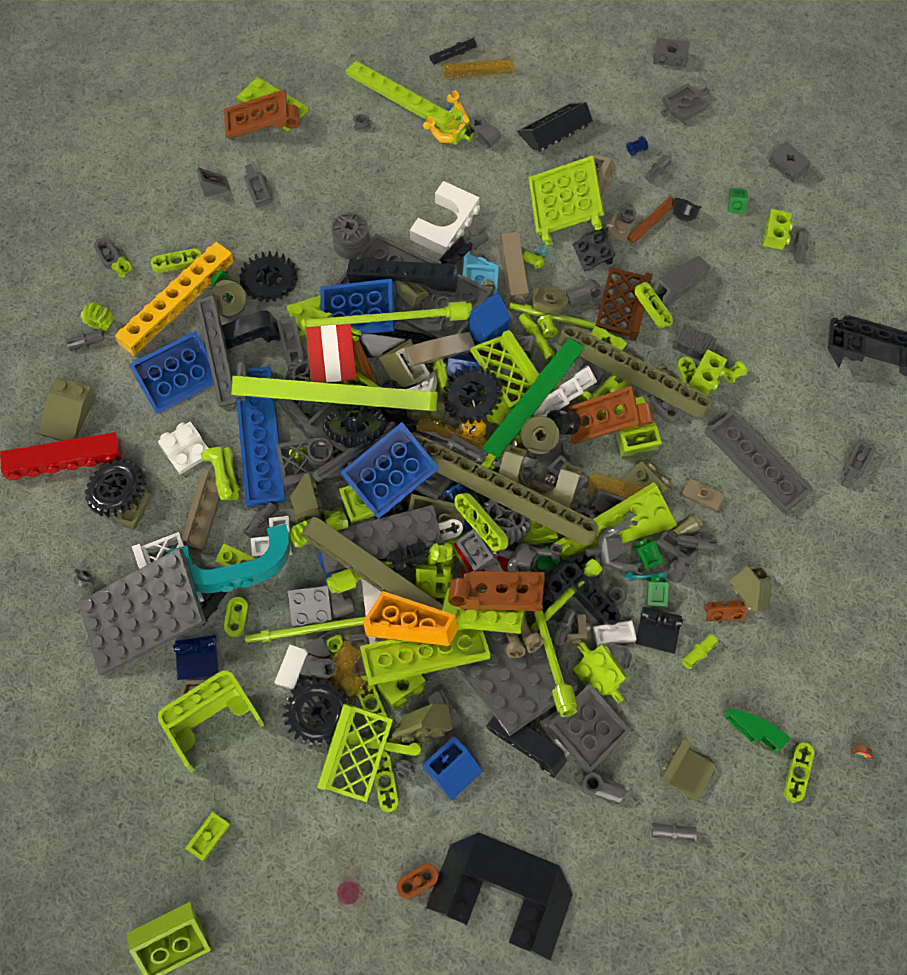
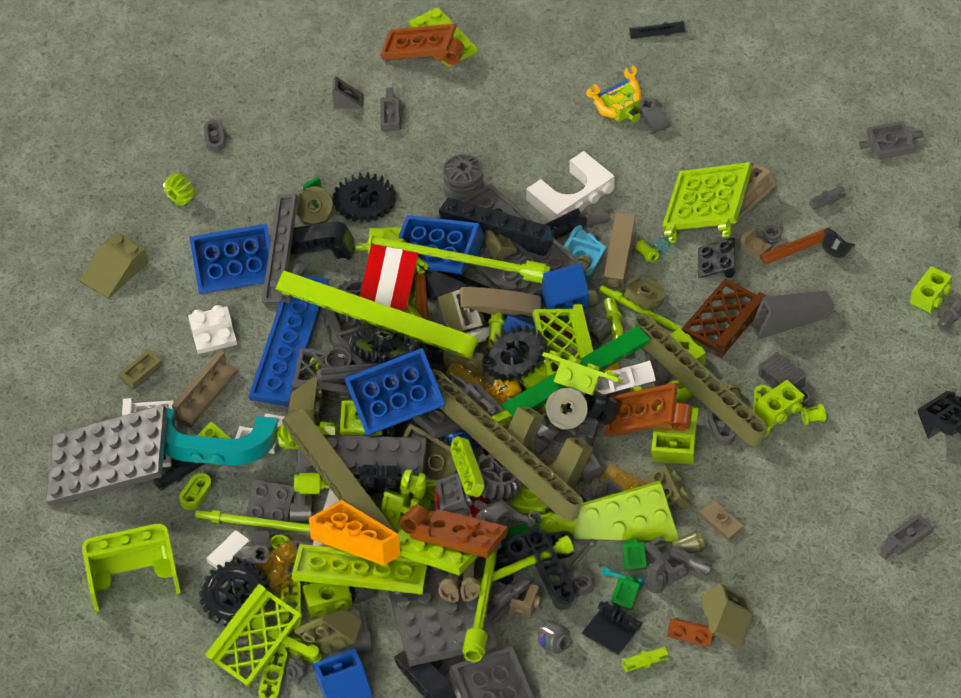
camera: 25 degrees right, 15 degrees down
(60, 456) = (92, 304): red brick -> none
(83, 578) = (66, 416): dark grey plate -> none
(85, 340) = (159, 208): dark grey axle -> none
(121, 493) = (130, 348): black gear -> none
(127, 267) = (218, 151): lime plate -> none
(170, 257) = (267, 154): lime beam -> none
(171, 306) = (260, 193): yellow brick -> none
(196, 657) = (141, 512): clear blue hinge -> none
(208, 836) = (86, 668): lime plate -> none
(224, 471) = (241, 348): lime piece -> none
(260, 520) = (250, 416): dark grey pin -> none
(290, 340) = (357, 258): dark grey plate -> none
(361, 118) = (527, 75): dark grey plate -> none
(399, 94) = (577, 58): lime plate -> none
(447, 524) = (434, 464): white beam -> none
(477, 68) = (676, 53): clear yellow piece -> none
(540, 402) = (577, 376): none -> lime bracket
(547, 326) = (630, 313): lime bush -> none
(556, 125) = (734, 128): black slope -> none
(583, 293) = (682, 296): dark grey piece -> none
(601, 671) = (531, 642): lime plate -> none
(611, 546) = (593, 534): dark grey piece -> none
(619, 633) = (569, 617): white plate -> none
(637, 146) = (814, 170): clear blue bush -> none
(661, 315) = (749, 333): lime beam -> none
(671, 52) = (899, 86): dark grey brick -> none
(737, 201) = (900, 251): green bracket -> none
(758, 461) = (797, 505): dark grey plate -> none

